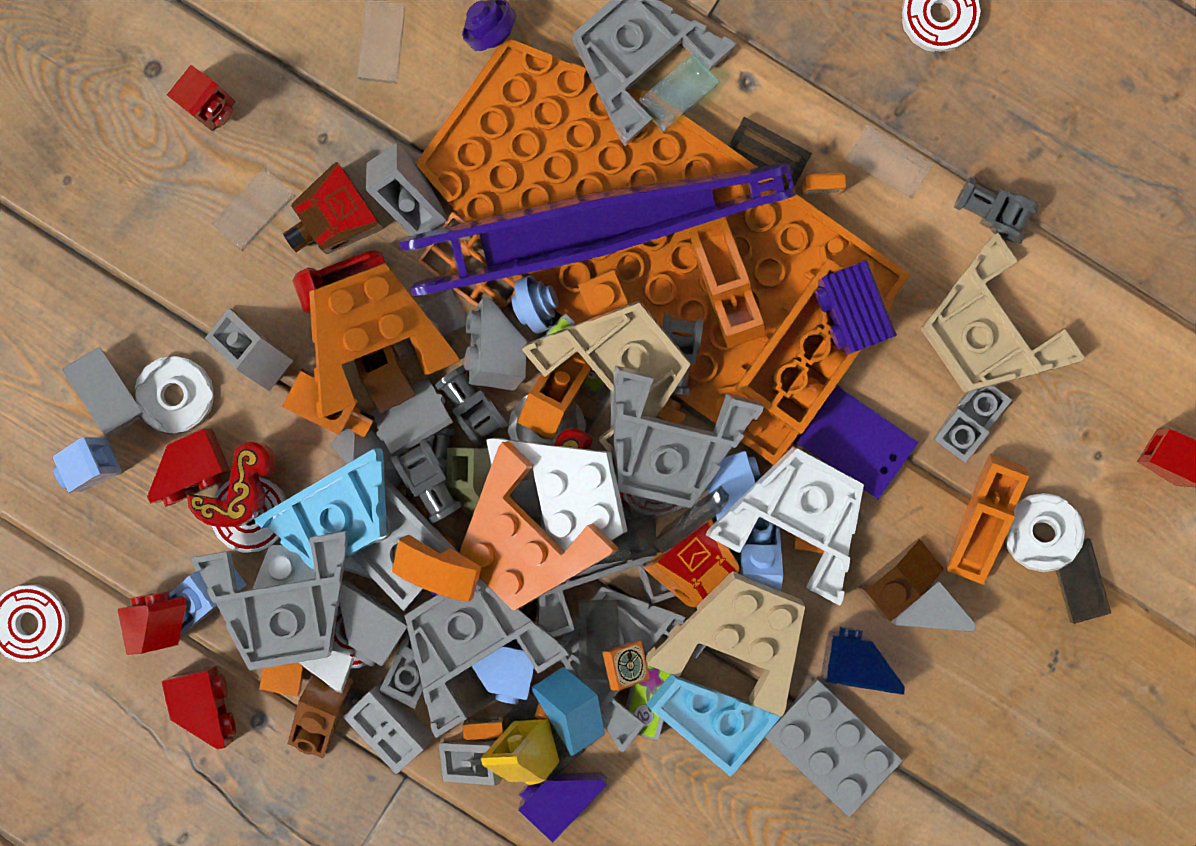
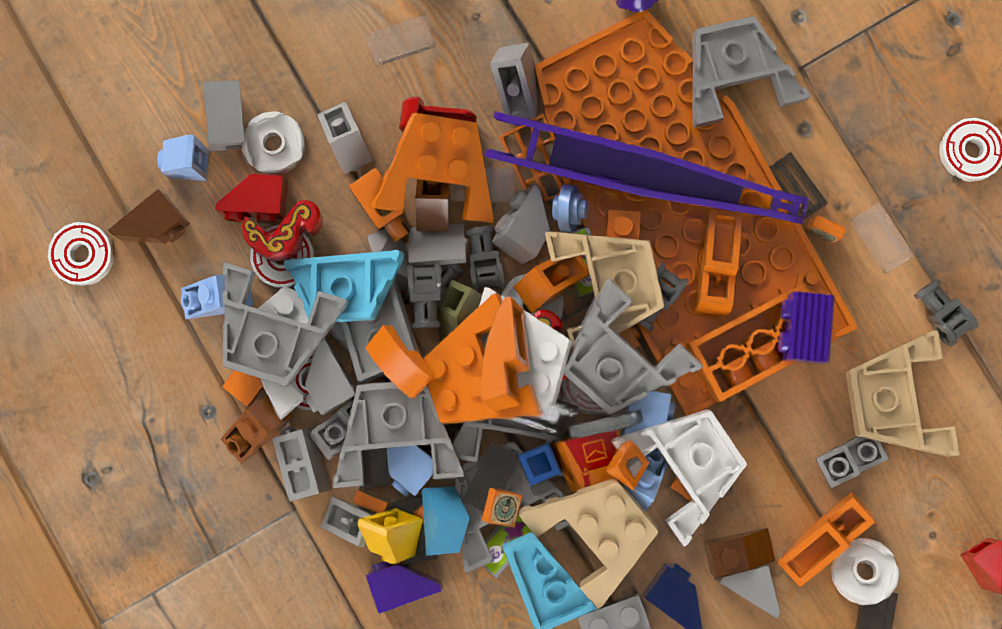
camera: 25 degrees right, 5 degrees down
(87, 548) = (151, 221): none -> reddish brown slope
(151, 622) = (170, 297): red slope -> none
(199, 707) = (171, 377): red slope -> none
(331, 214) = (455, 71): torso -> none
(547, 508) = (504, 357): none -> orange slope
(643, 596) = (540, 463): none -> blue slope
(678, 92) = (751, 110): clear light blue tile -> none
(737, 553) = (628, 464): none -> orange slope
(857, 441) = (757, 431): dark purple container -> none

